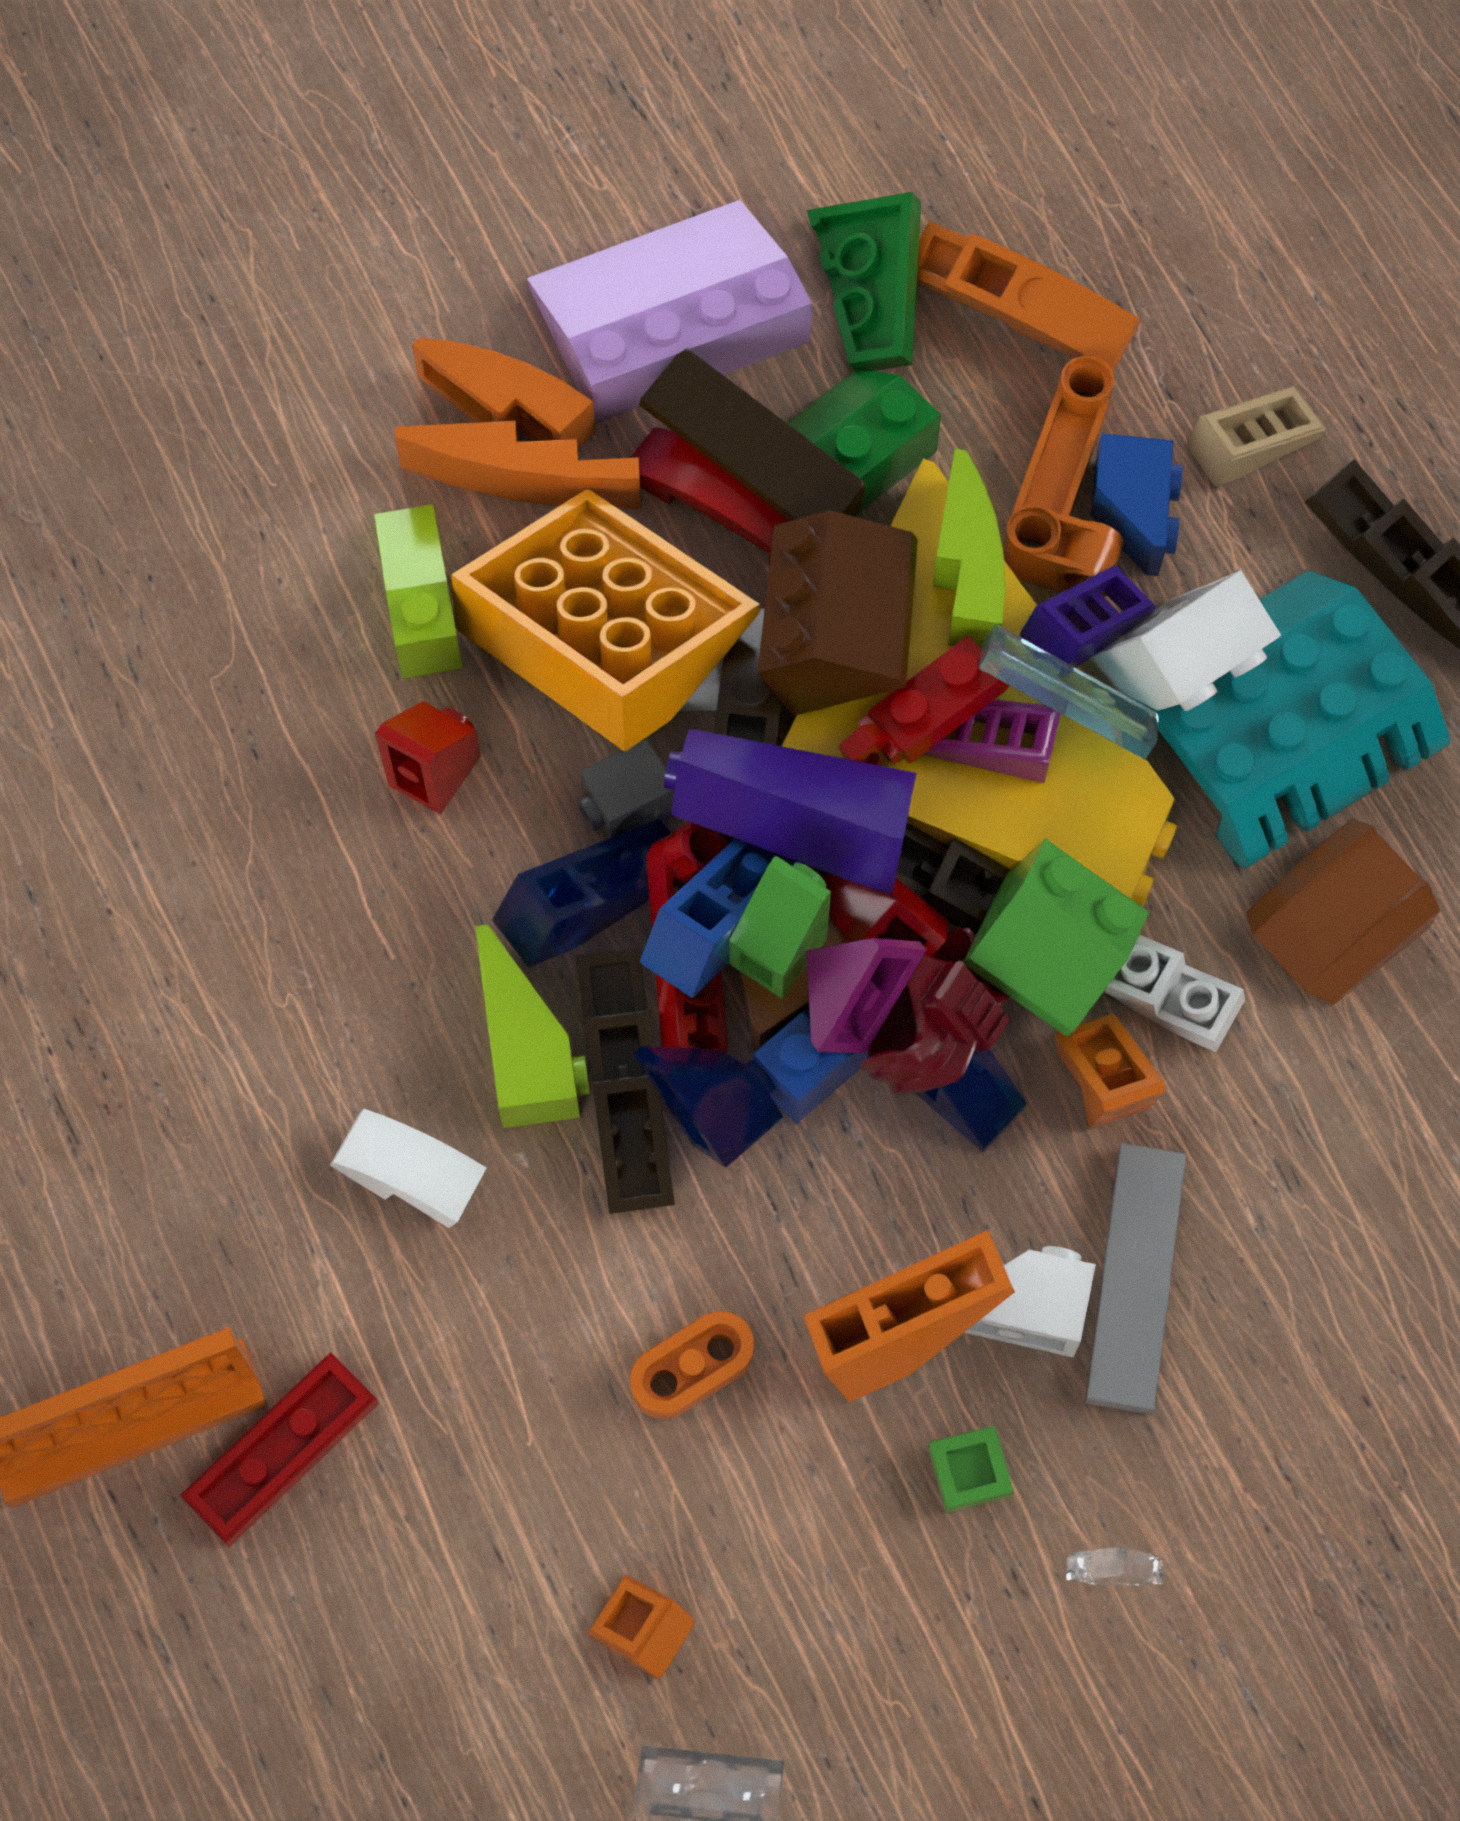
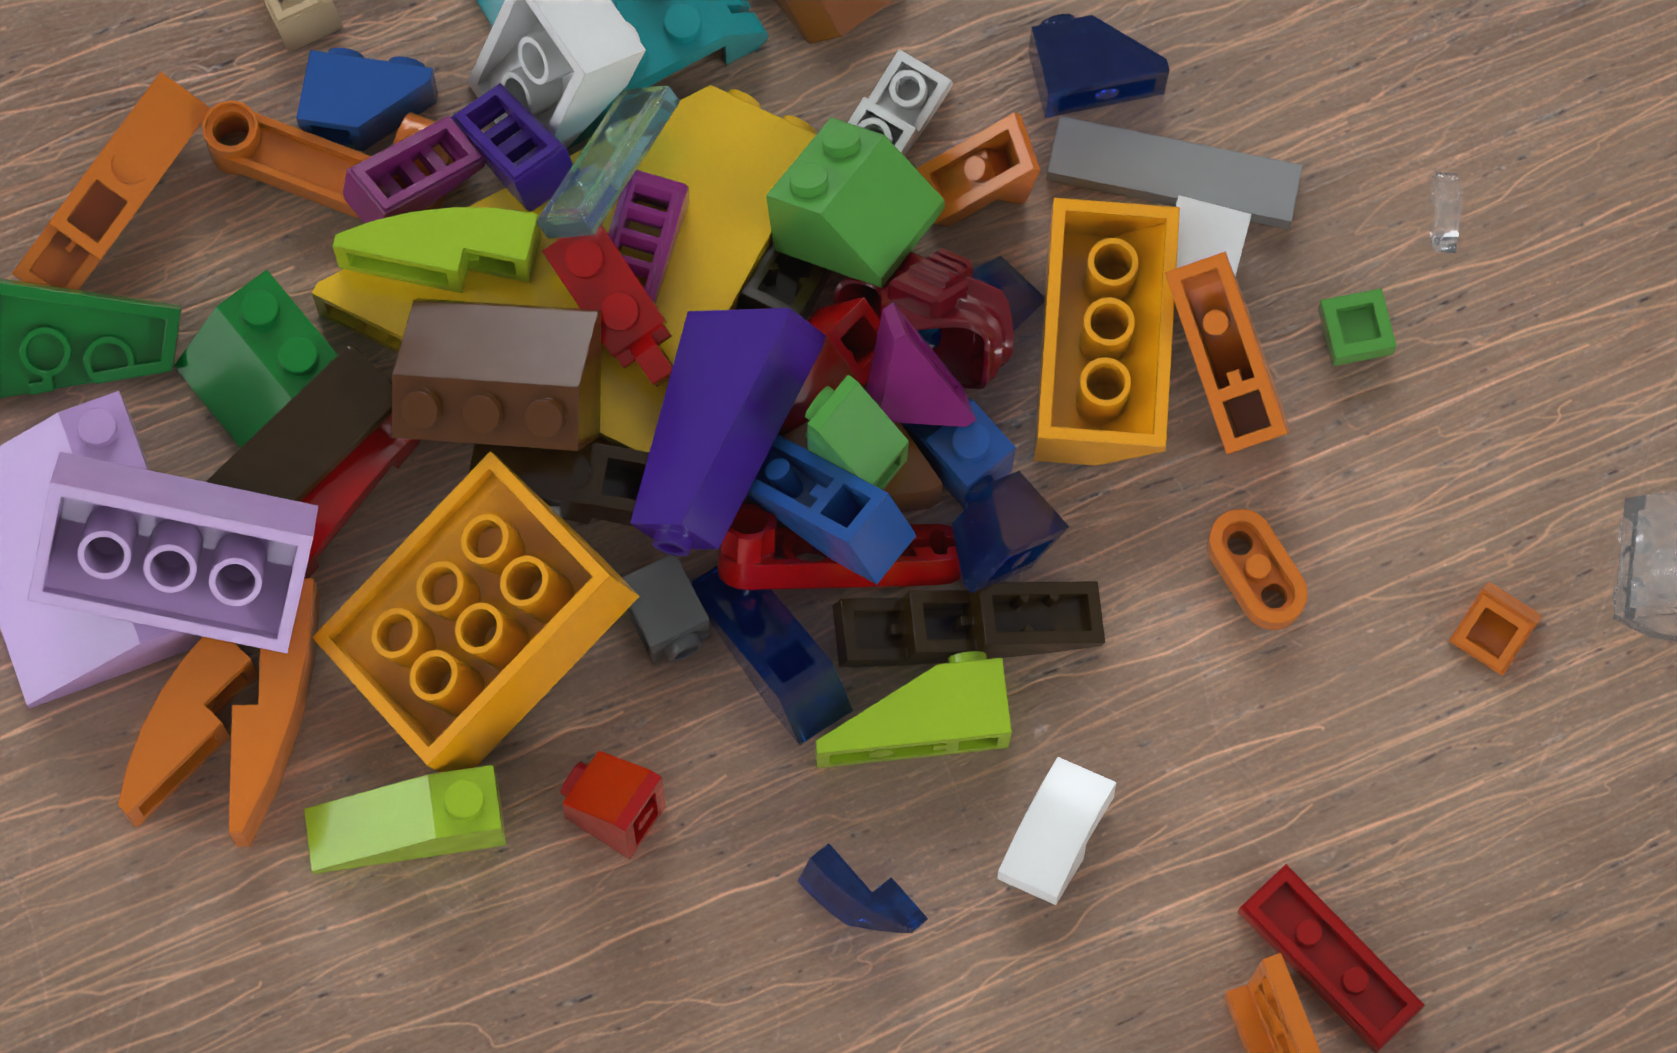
camera: 90 degrees left, 5 degrees up
(327, 999) = (852, 902): none -> clear blue slope
(646, 342) = (172, 552): none -> lavender slope
(937, 1185) = (1106, 332): none -> light orange slope
(1052, 503) = (375, 193): none -> magenta slope
(1243, 1176) = (1091, 65): none -> clear blue slope

